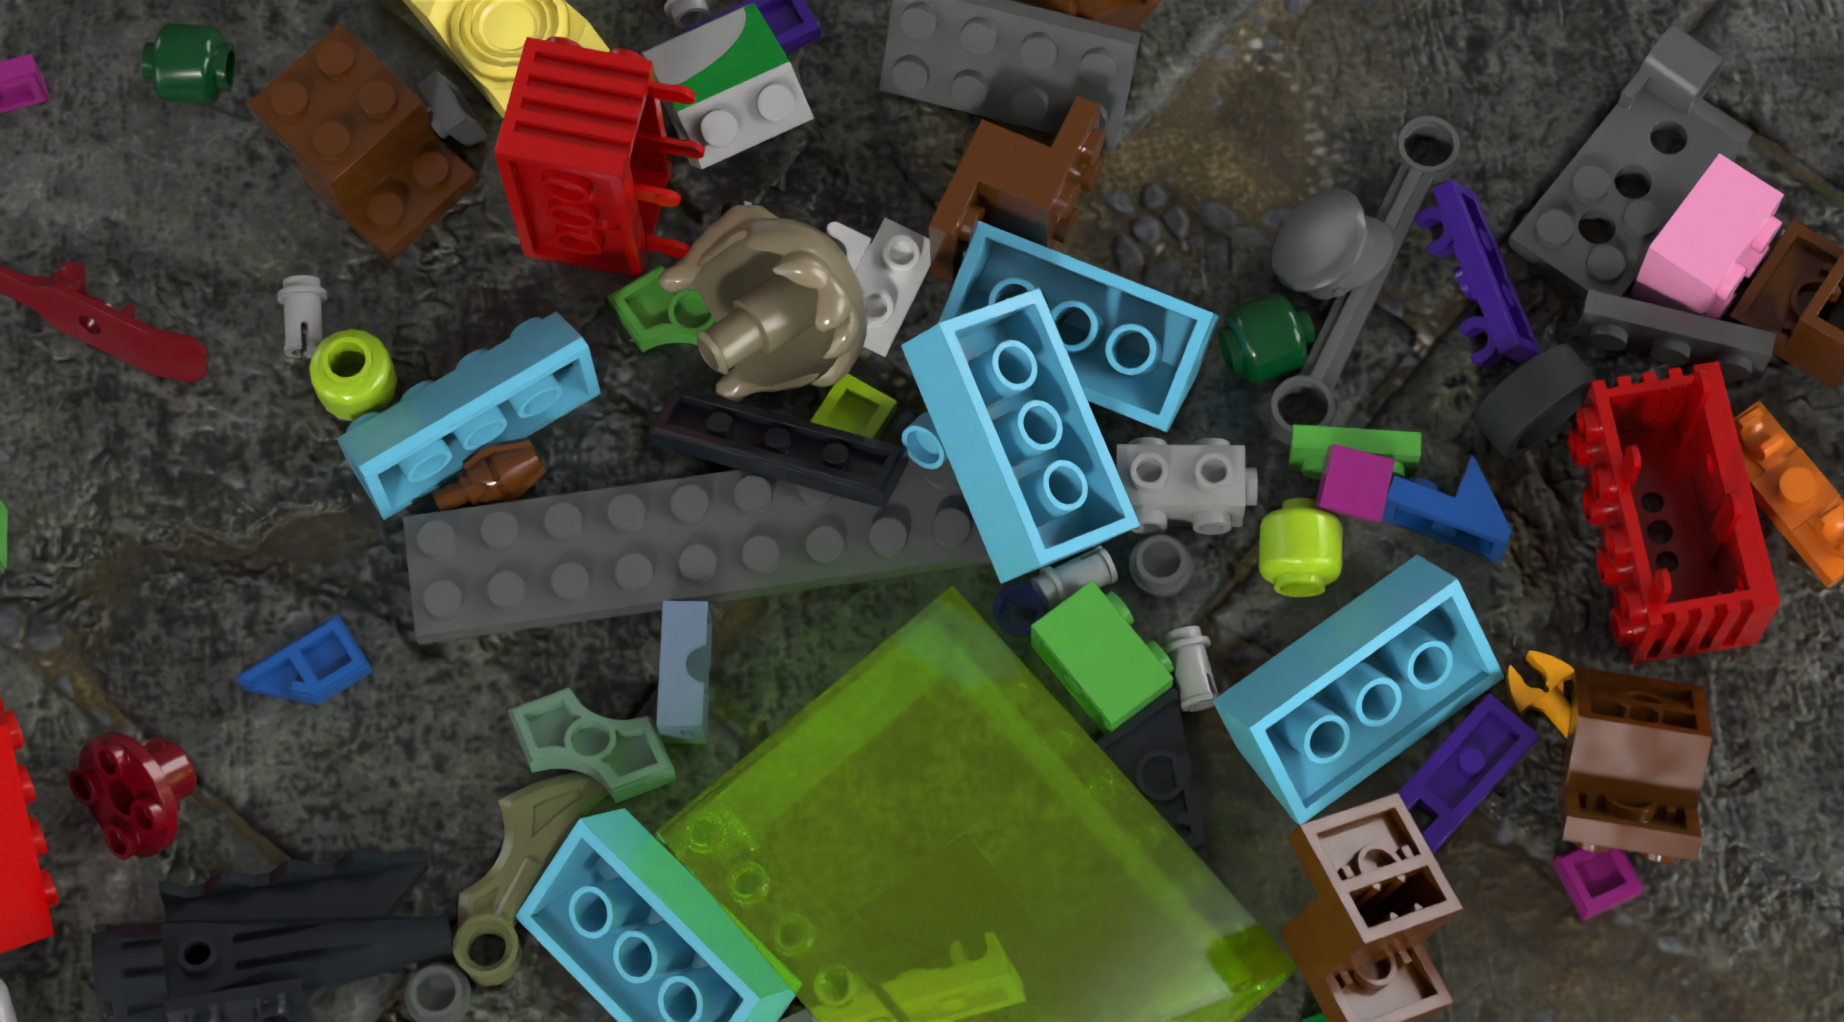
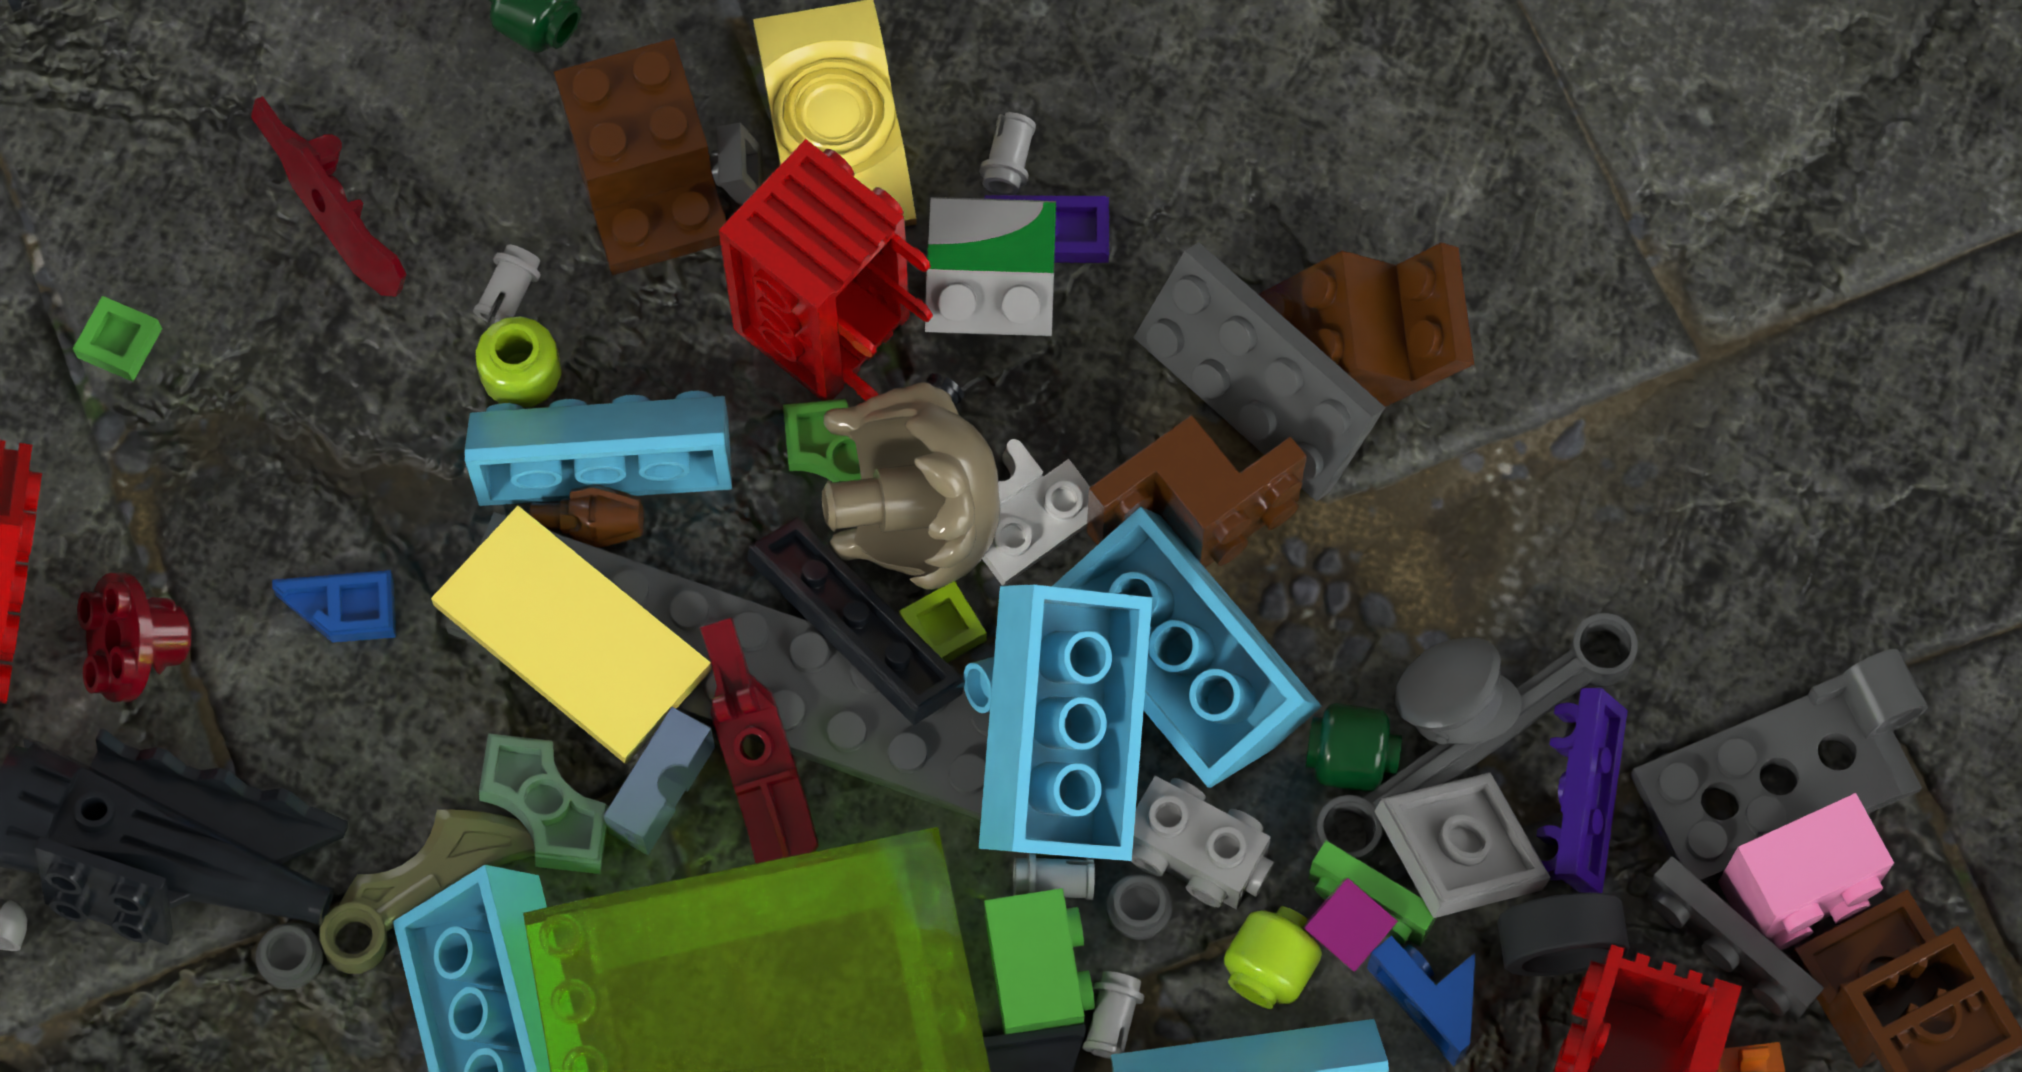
camera: 25 degrees right, 0 degrees up
(536, 584) = (571, 634): none -> light yellow tile
(781, 629) = (766, 786): none -> dark red piece
(1021, 596) = (978, 892): hinge -> none
(1406, 371) = (1462, 845): none -> light grey plate

